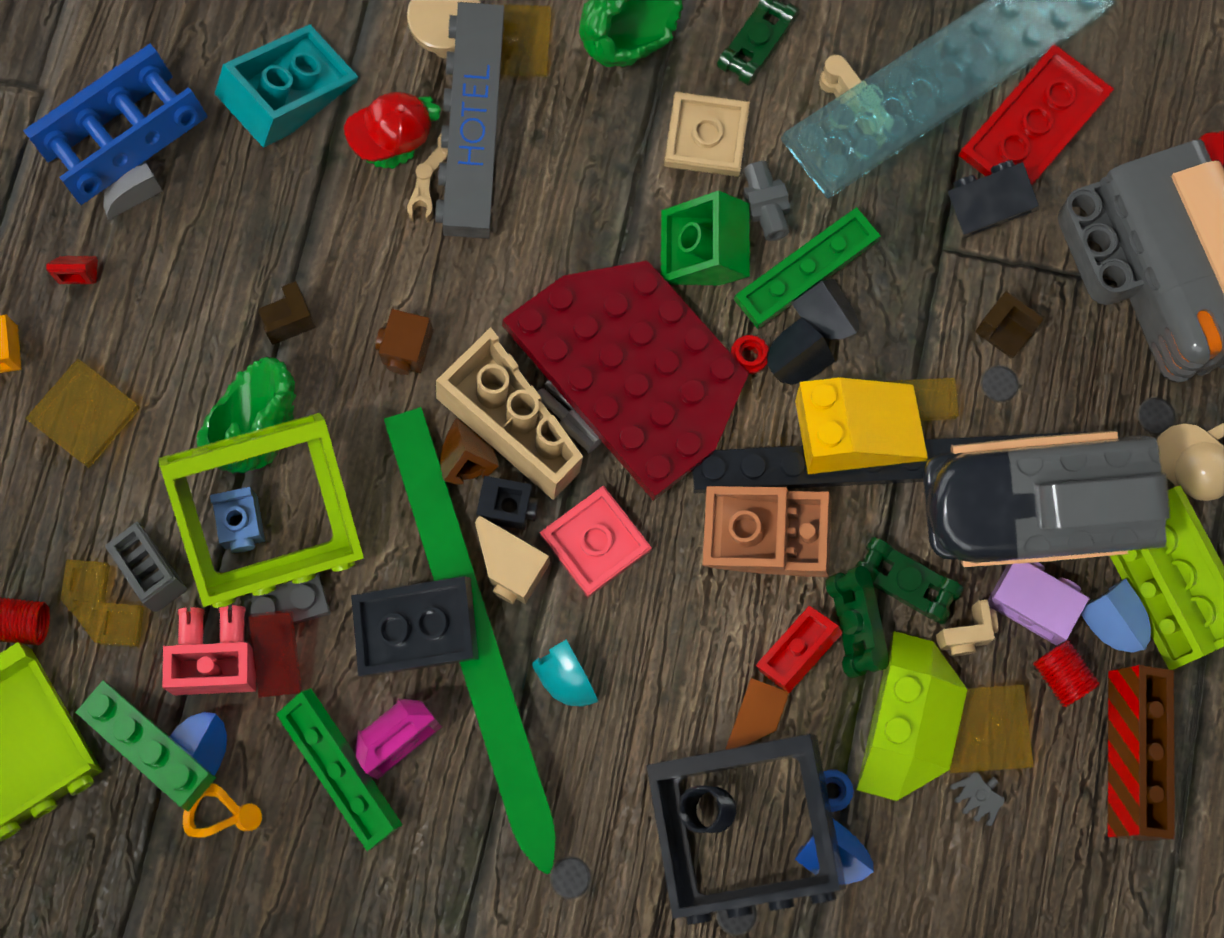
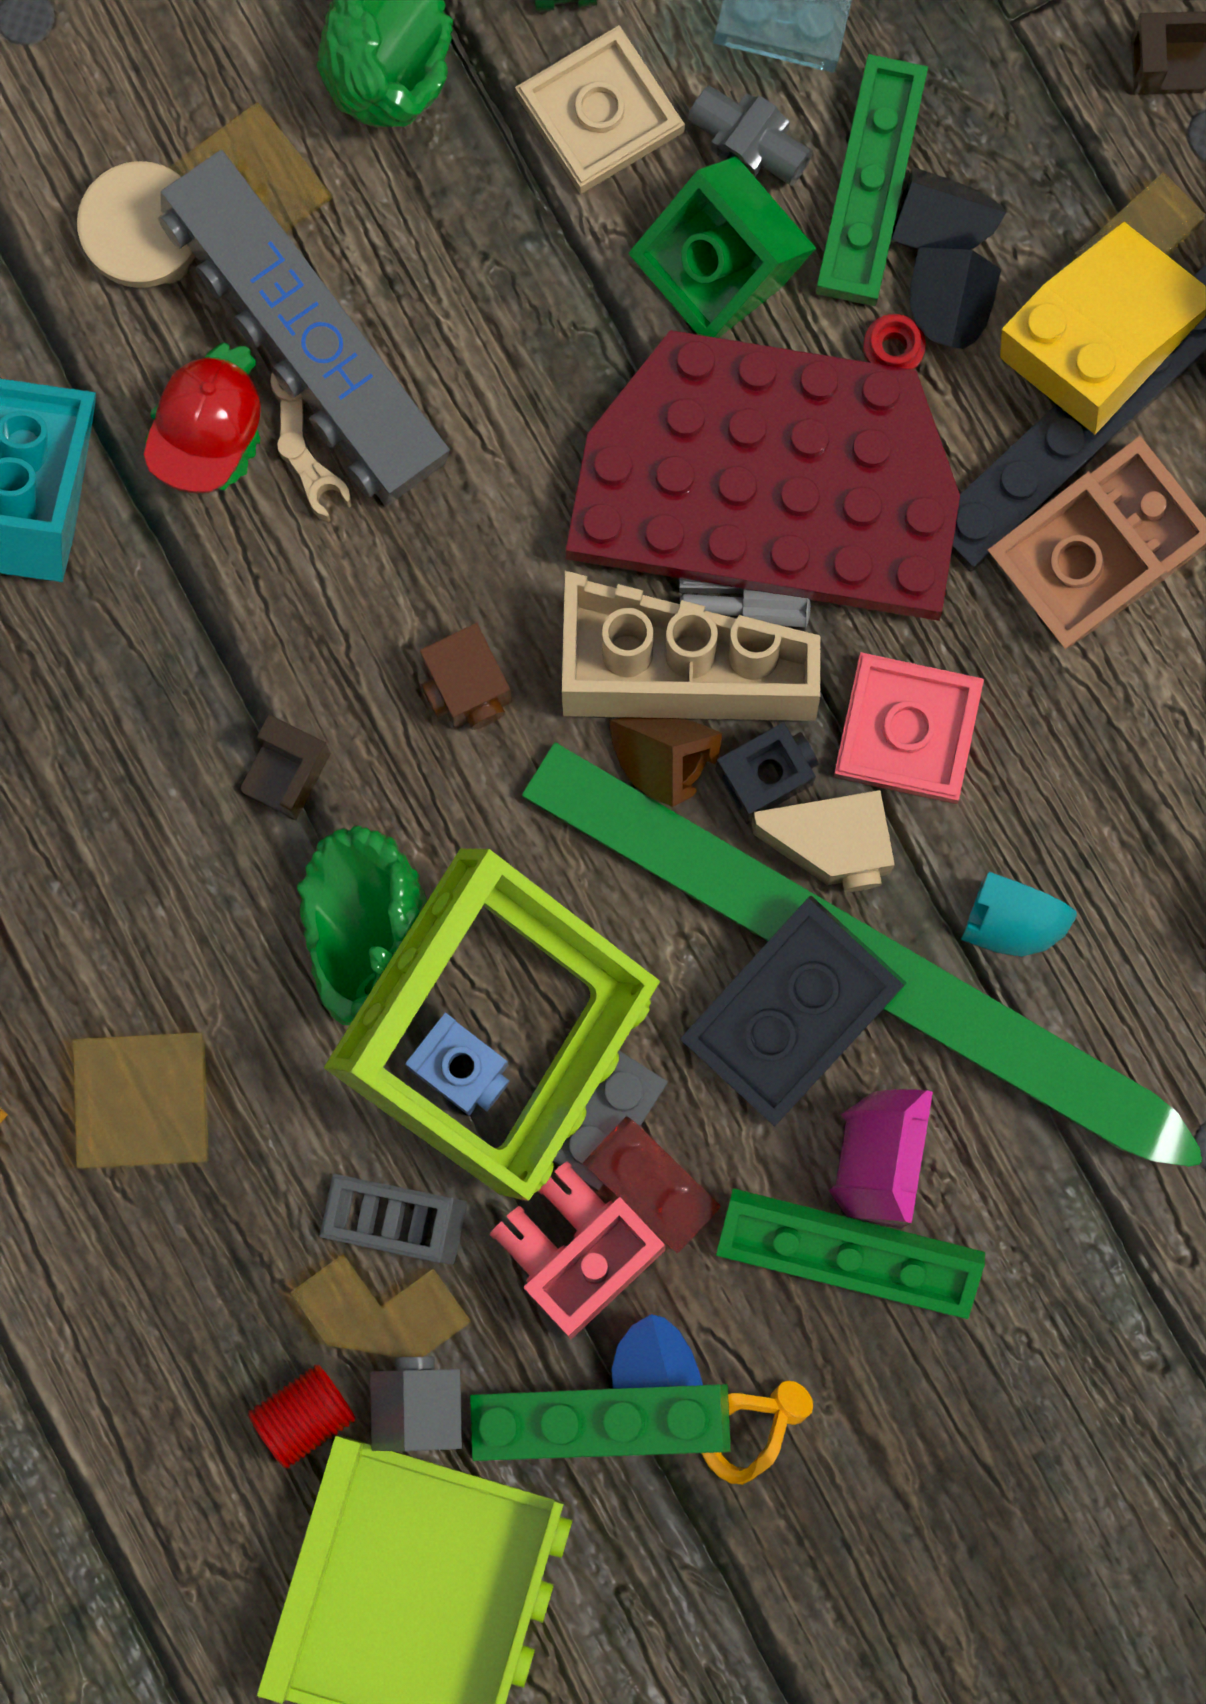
camera: 40 degrees left, 5 degrees up
(69, 662) = (415, 1407): none -> dark grey brick

